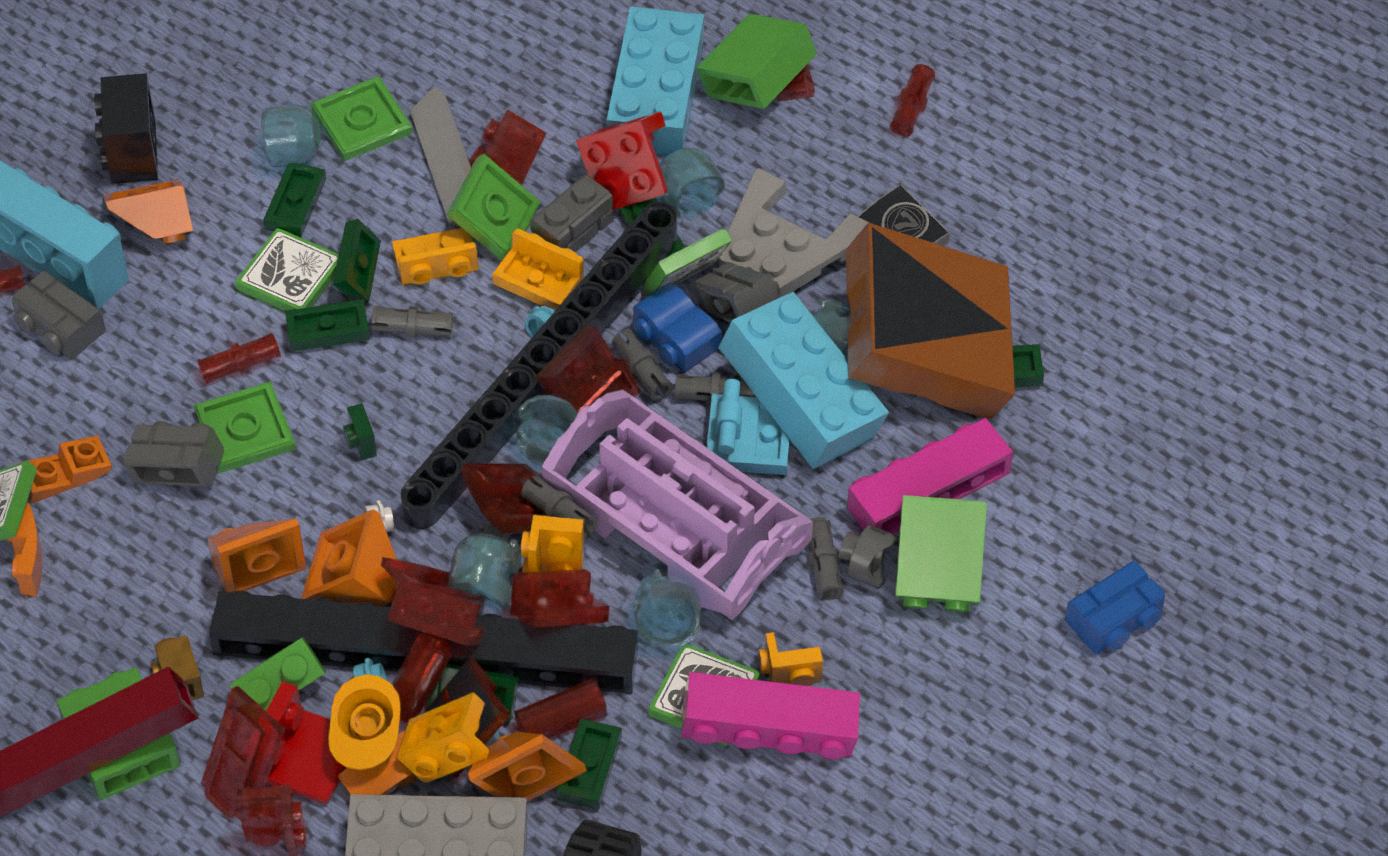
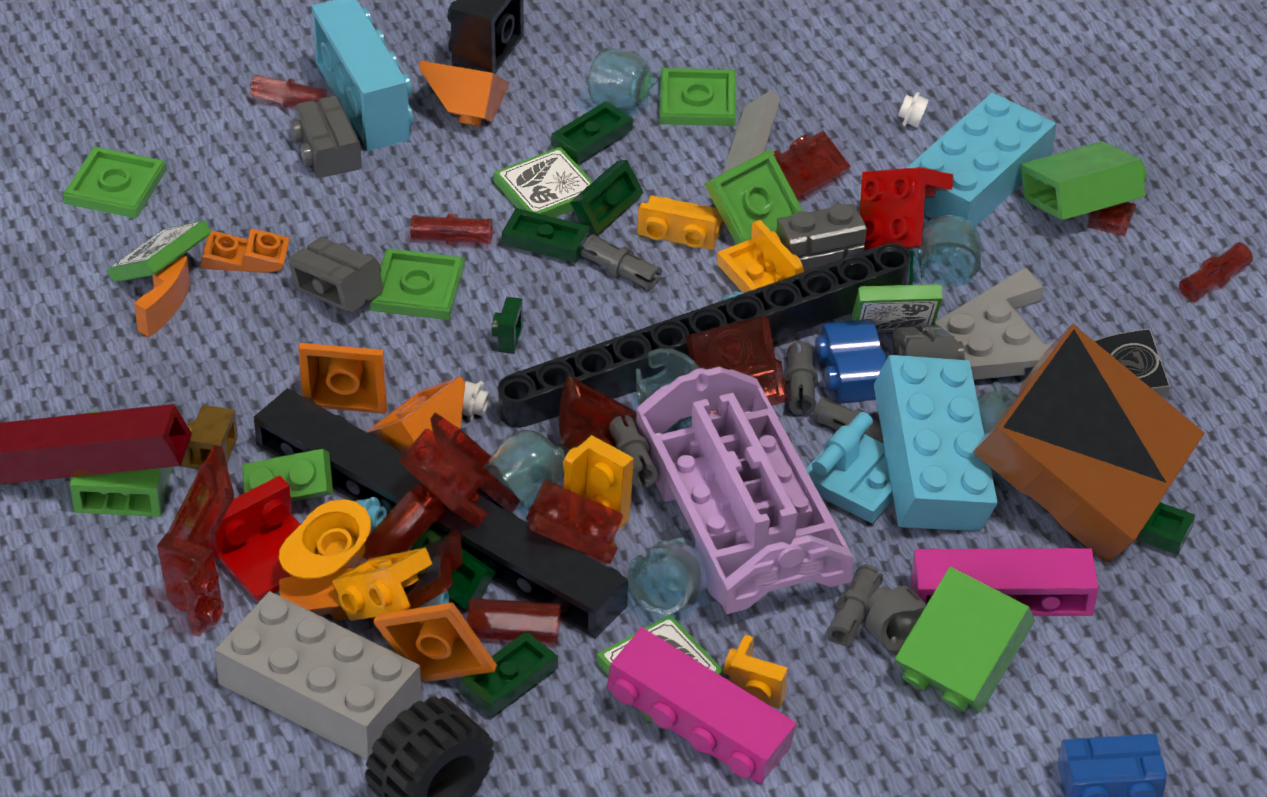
camera: 30 degrees right, 10 degrees down
(562, 49) = (913, 109): none -> white plate

